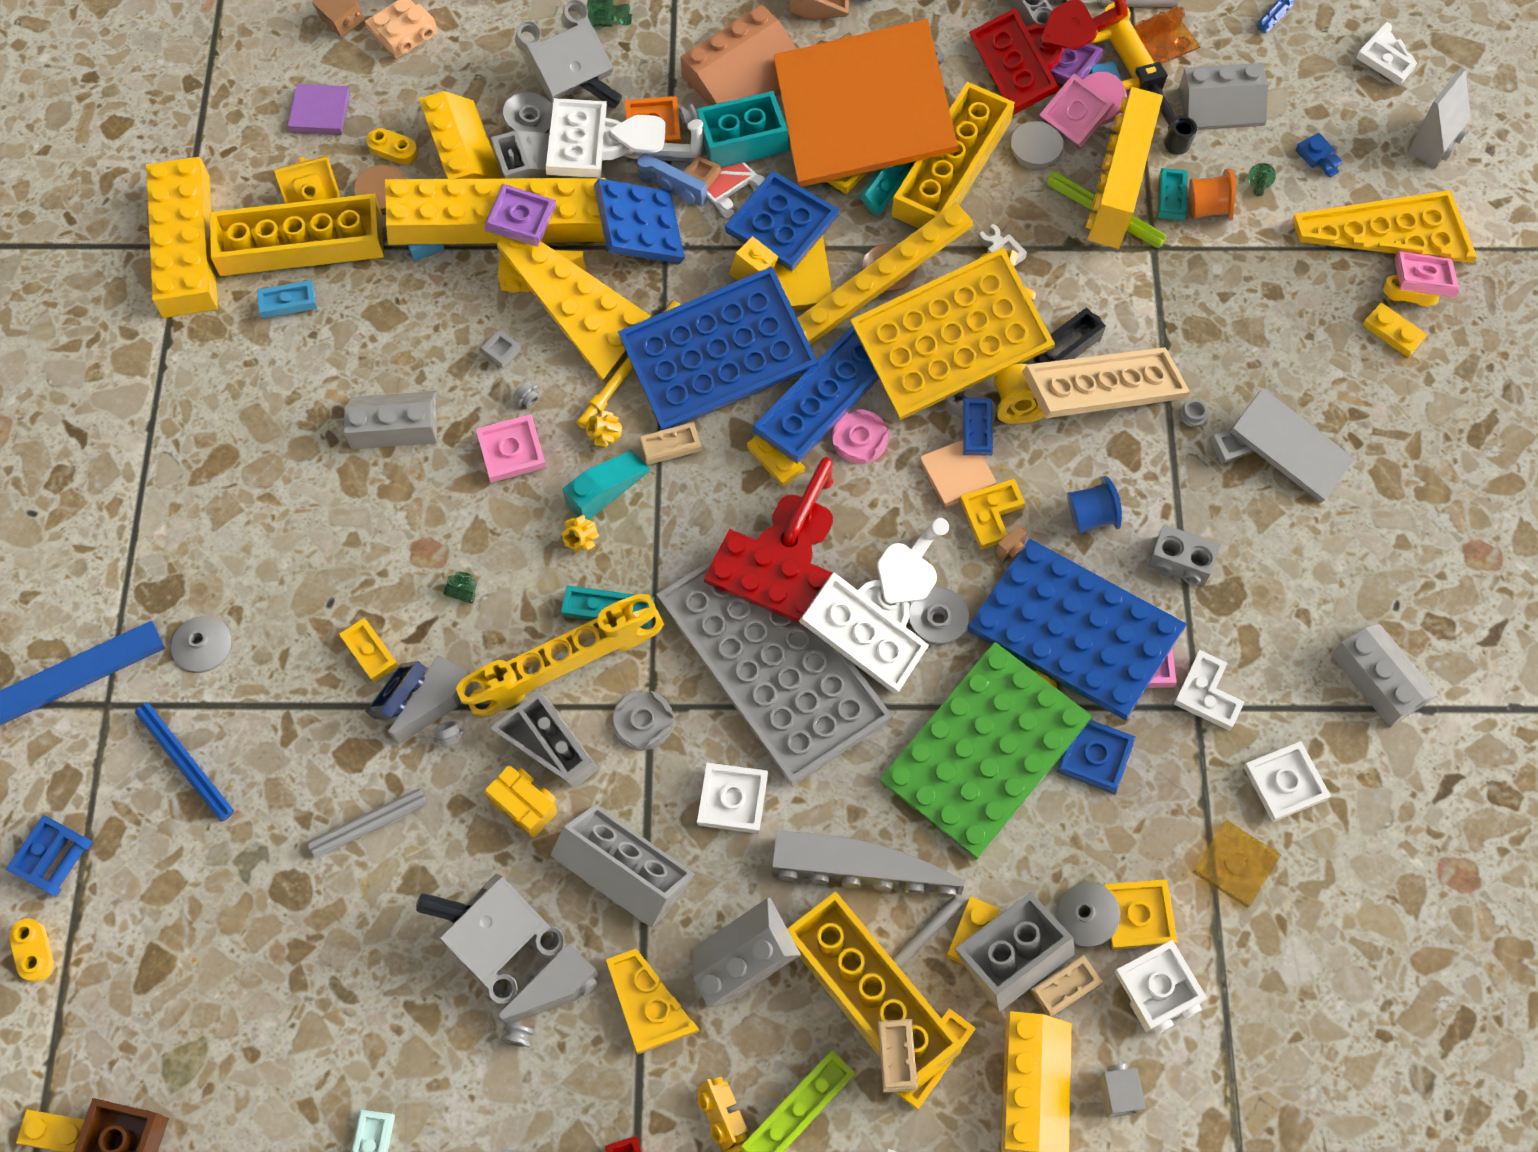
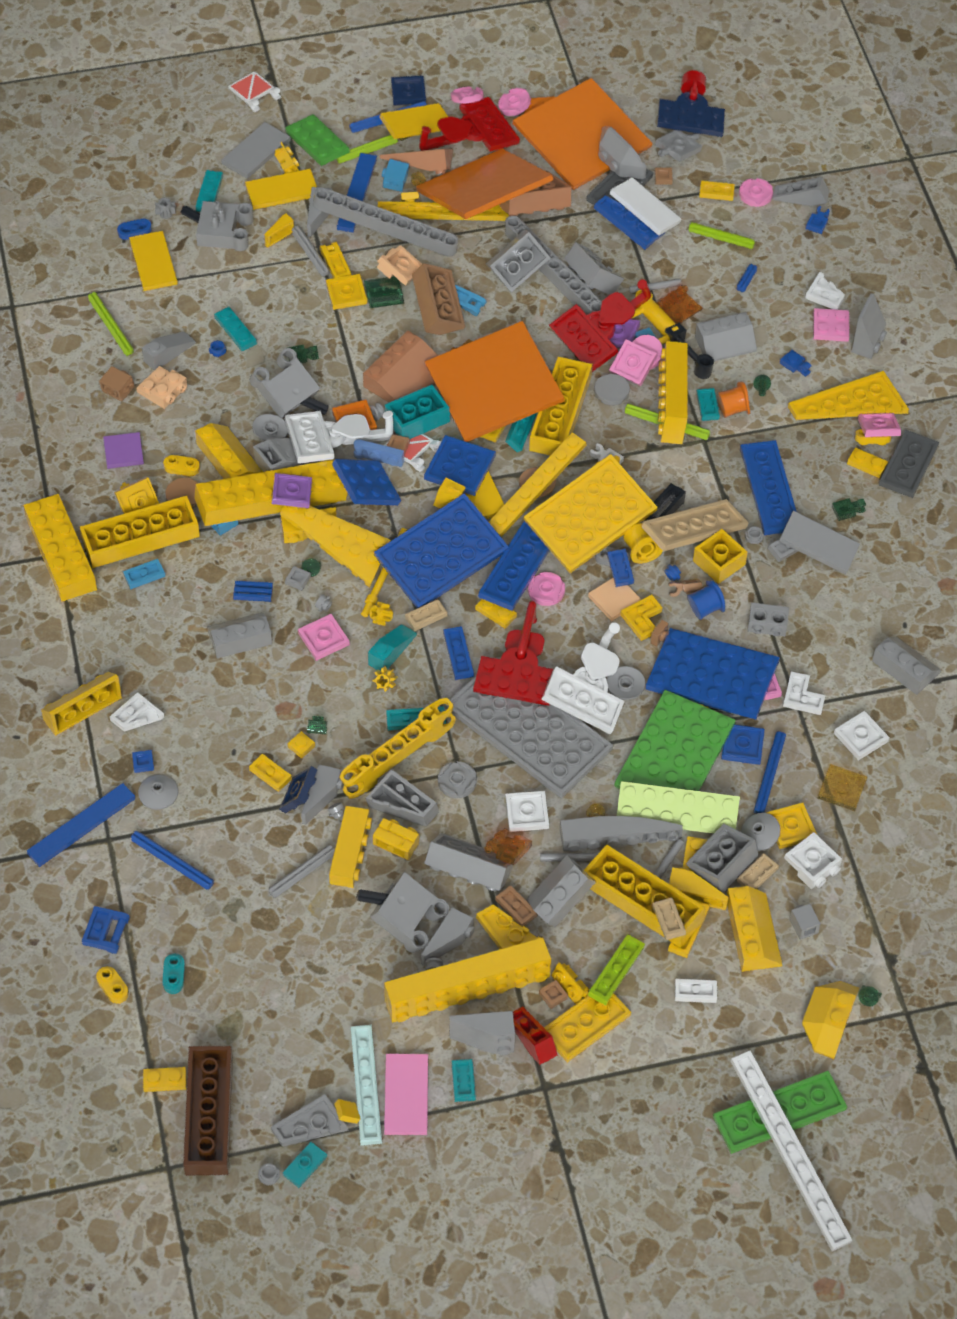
camera: 15 degrees left, 10 degrees down
(127, 951) = (173, 971): none -> teal plate
(131, 482) = (82, 703): none -> yellow slope
(191, 592) = (143, 761): none -> blue plate
(205, 513) = (136, 713): none -> white wing
(429, 613) = (301, 744): none -> yellow plate
(435, 351) = (253, 588): none -> blue tile
(448, 799) = (349, 847): none -> yellow brick
(526, 335) = (311, 565): none -> clear green plate
(555, 1078) = (467, 980): none -> yellow brick
(671, 957) = (516, 906): none -> medium nougat plate
(688, 1128) = (553, 994): none -> medium nougat plate
(691, 862) = (512, 847): none -> clear orange plate
(700, 514) = (458, 653): none -> blue plate
(778, 889) = (558, 857): none -> light grey bar
(841, 816) = (595, 808): none -> clear yellow plate
(951, 987) = (697, 888): none -> yellow slope
(967, 846) = (689, 808): none -> yellowish green plate
(1055, 449) = (672, 572): none -> blue plate
(1073, 475) = (687, 586): none -> medium nougat plate
(1126, 814) = (770, 772): none -> blue axle
(1133, 438) = (720, 556): none -> yellow brick
(1234, 338) = (768, 485): none -> blue plate
(1345, 398) = (846, 509): none -> clear green plate
(1386, 105) = (831, 324): none -> bright pink plate
(1458, 344) = (908, 463): none -> dark grey plate

